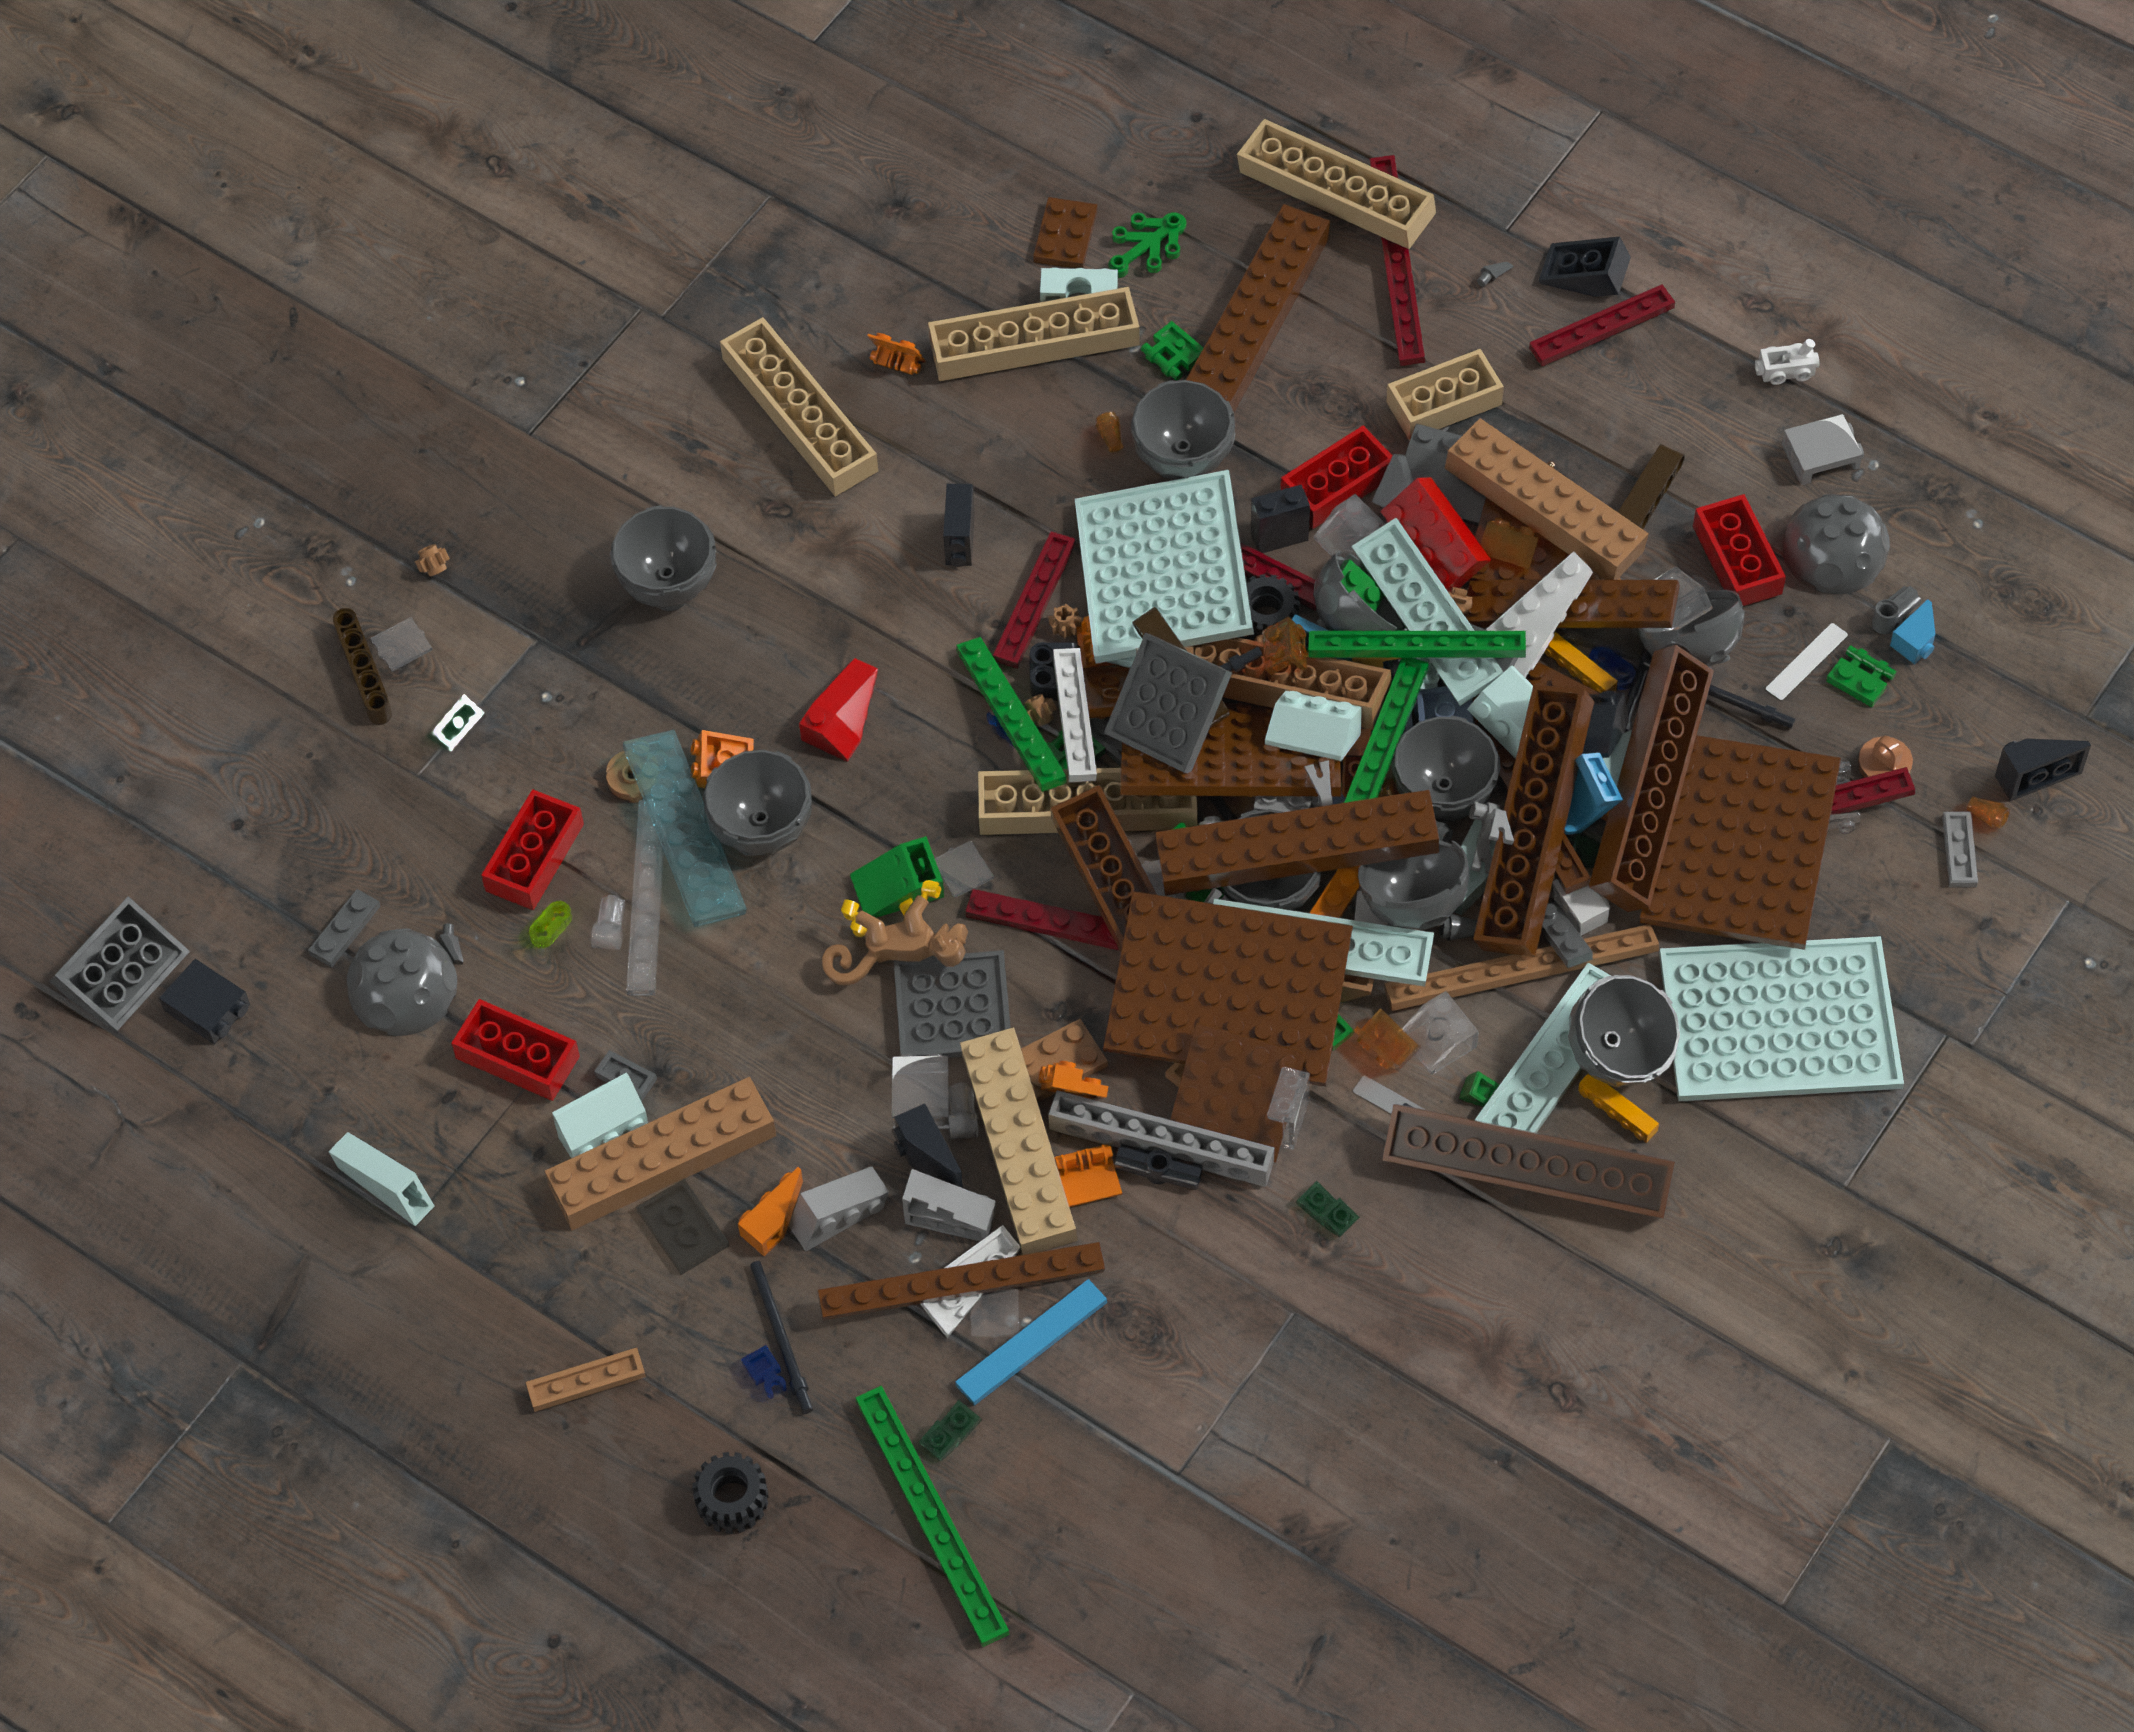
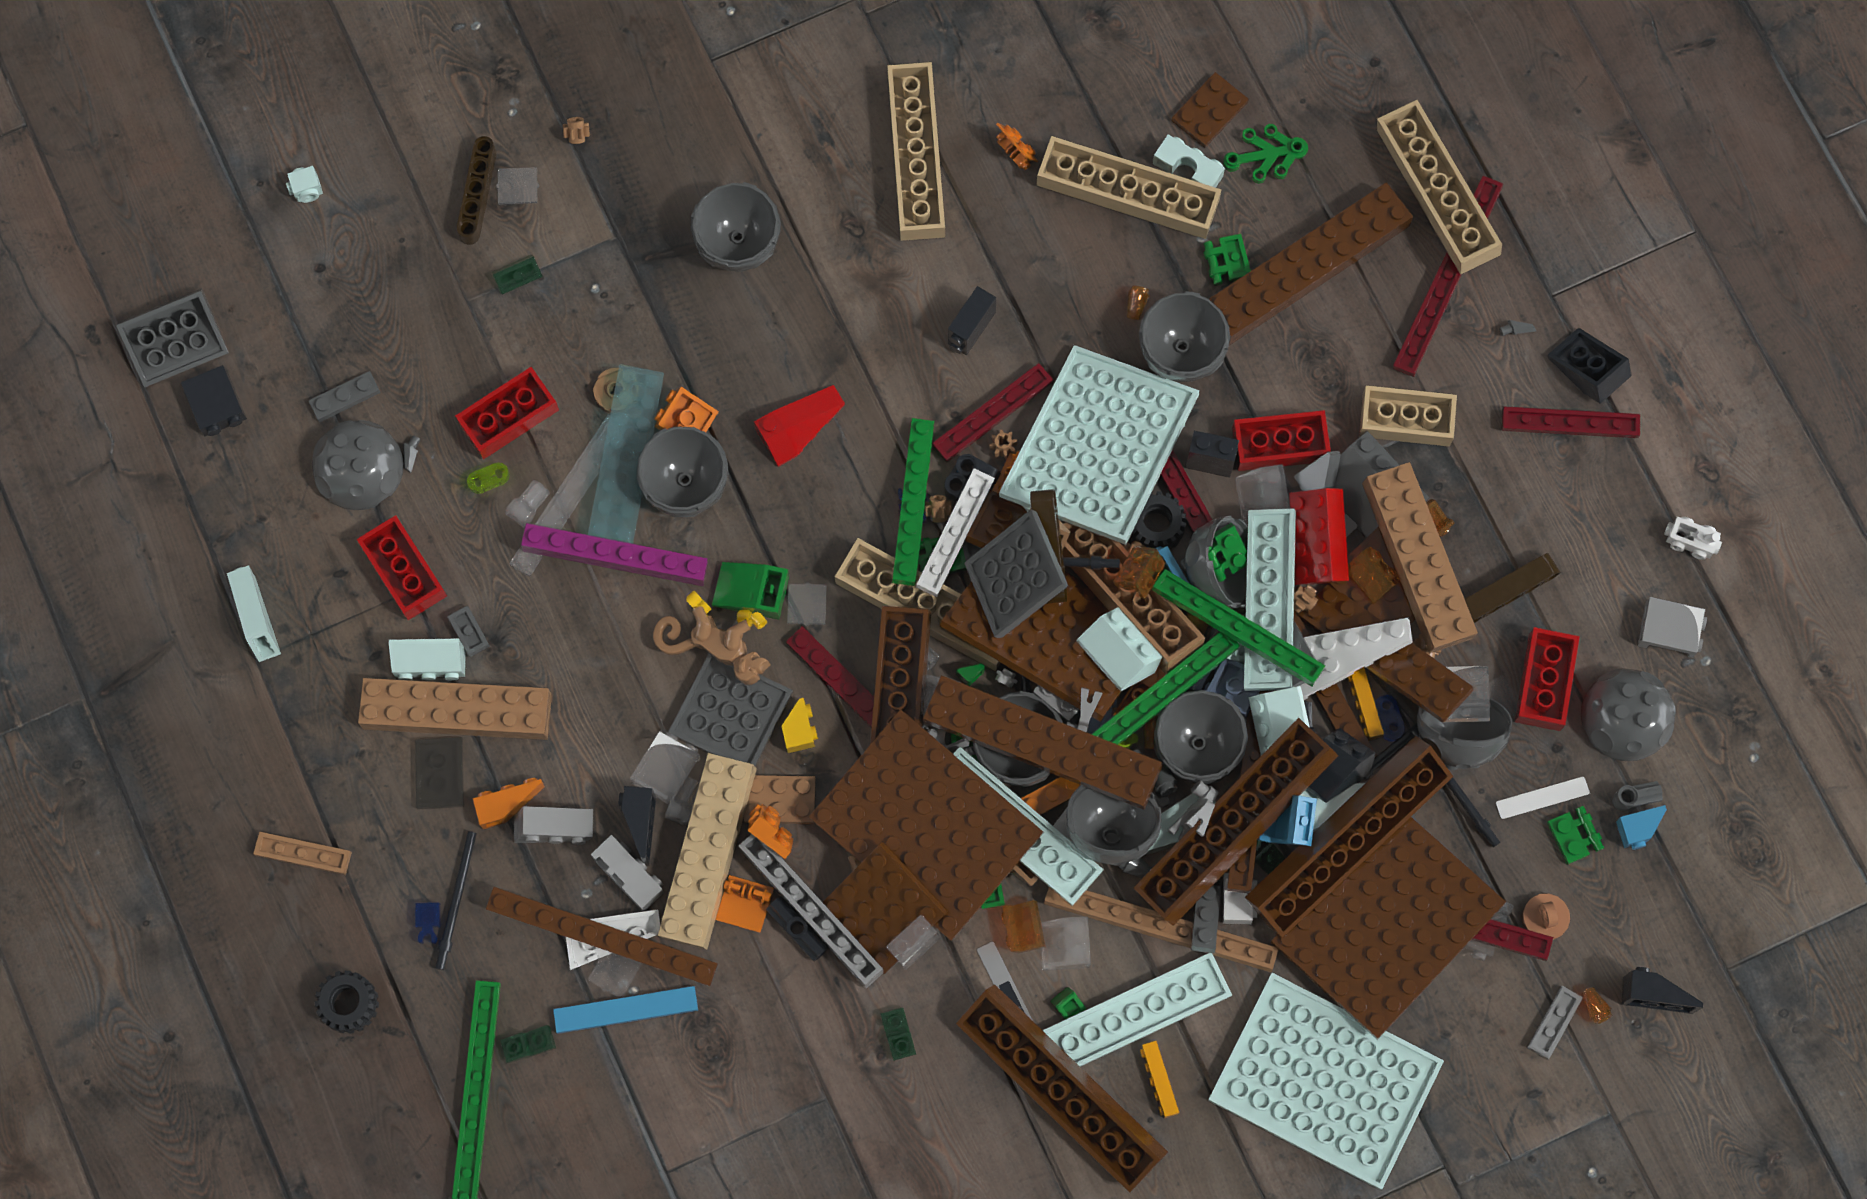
camera: 30 degrees right, 15 degrees up
(172, 751) = (304, 184): none -> light aqua brick
(734, 920) = (614, 554): none -> magenta brick
(1034, 984) = (797, 729): none -> yellow slope
(1637, 1021) = (1207, 1041): dark grey rock -> none

